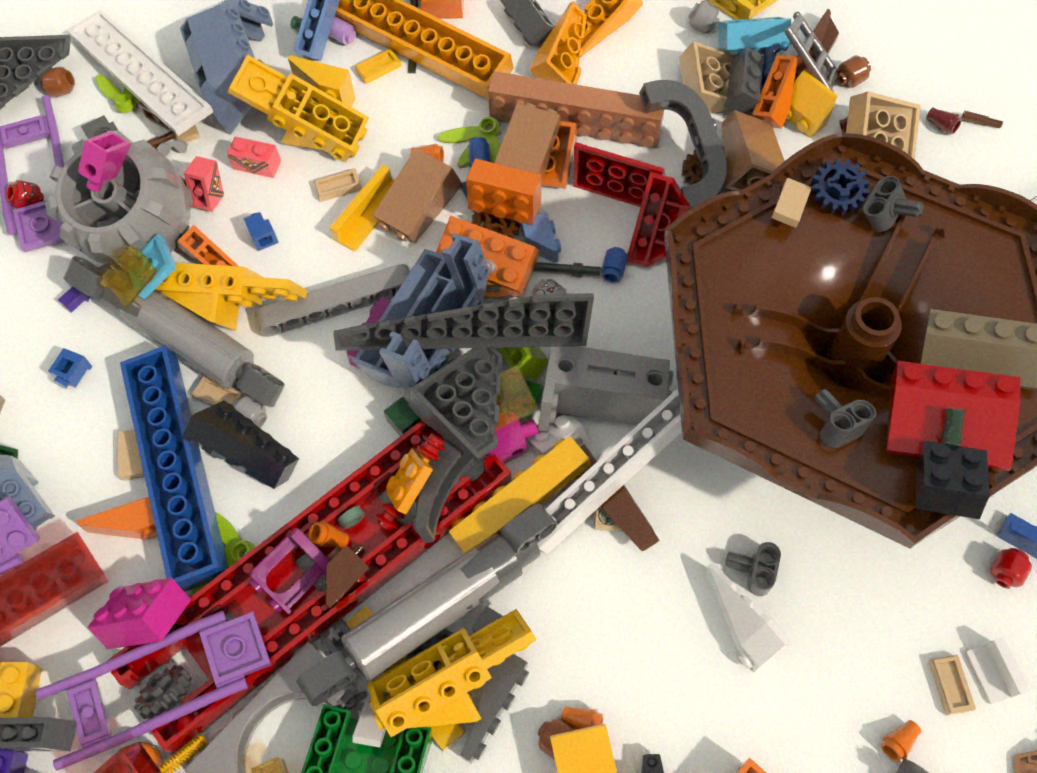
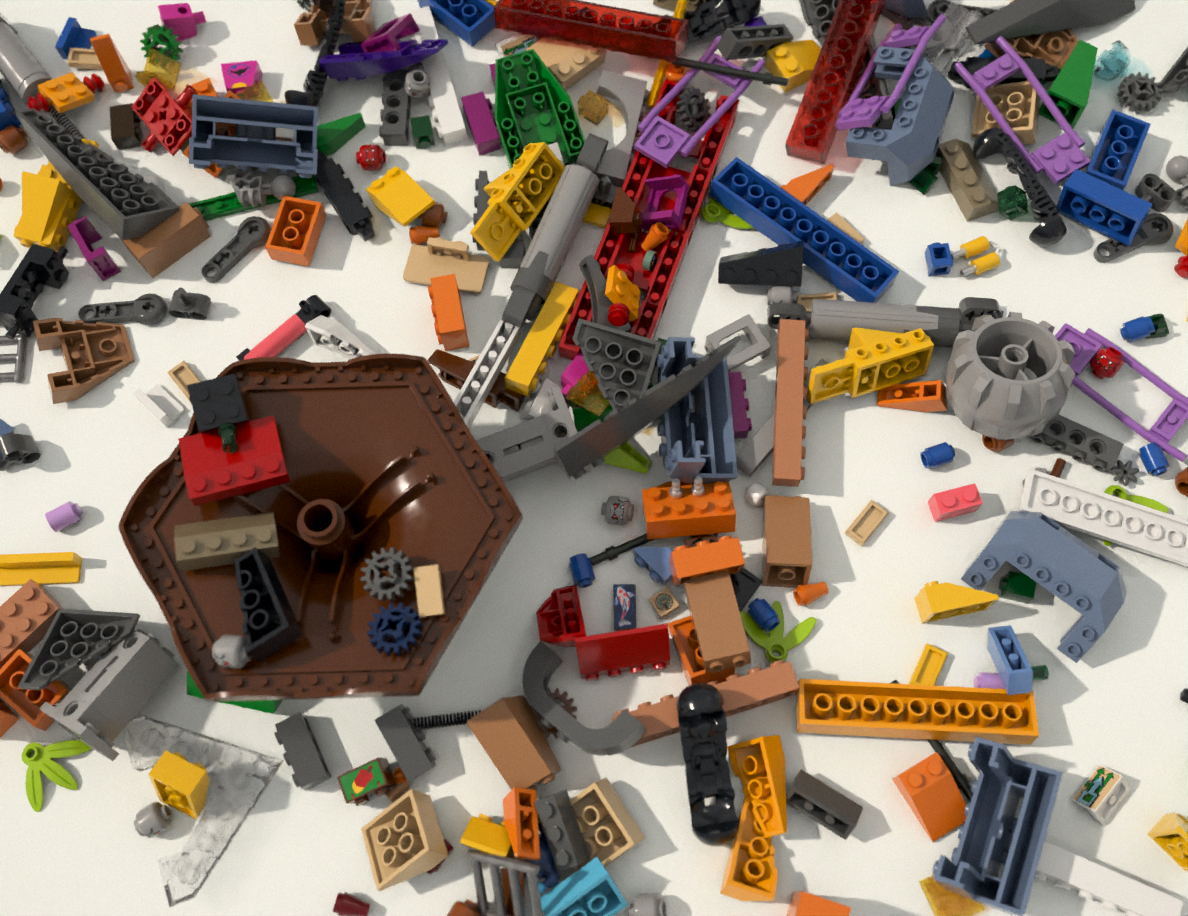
camera: 150 degrees right, 5 degrees up
(30, 343) = (980, 264): none -> yellow piece
(55, 659) = (766, 78): none -> pearl dark grey bar
(68, 111) = (1153, 459): none -> blue brick
(99, 112) = (1124, 472): none -> dark grey plant
(102, 159) = (1027, 356): dark pink torso -> none
(131, 277) = (939, 317): clear yellow hinge -> none
(139, 613) = (739, 130): dark pink brick -> none
(161, 258) = (933, 337): medium azure tile -> none
(204, 182) = (970, 447): coral brick -> none
(233, 200) = (937, 455): none -> blue brick
(260, 231) = (894, 441): blue brick -> none
(303, 110) = (944, 551): yellow wedge -> none
(323, 297) = (789, 403): none -> nougat brick
(348, 402) = (760, 345): none -> light grey panel
(357, 220) = (822, 499): yellow panel -> none
(412, 250) = (756, 494): none -> white piece
(556, 208) = (664, 602): none -> tile
(580, 659) = (446, 258): none -> tan bracket
(592, 222) = (624, 606): none -> tile
(593, 72) = (707, 769): none -> black piece
(607, 584) = (448, 312): none -> orange brick
(826, 232) = (380, 584): none -> dark grey gear
(841, 667) = (289, 330): none -> coral piece
(844, 421) = (315, 425): dark grey beam -> none
(887, 203) = (344, 628): dark grey beam -> none
(900, 741) = (211, 326): orange cone -> none
(964, 256) = (265, 608): none -> black wedge
(1011, 232) = (230, 651): none -> light grey head

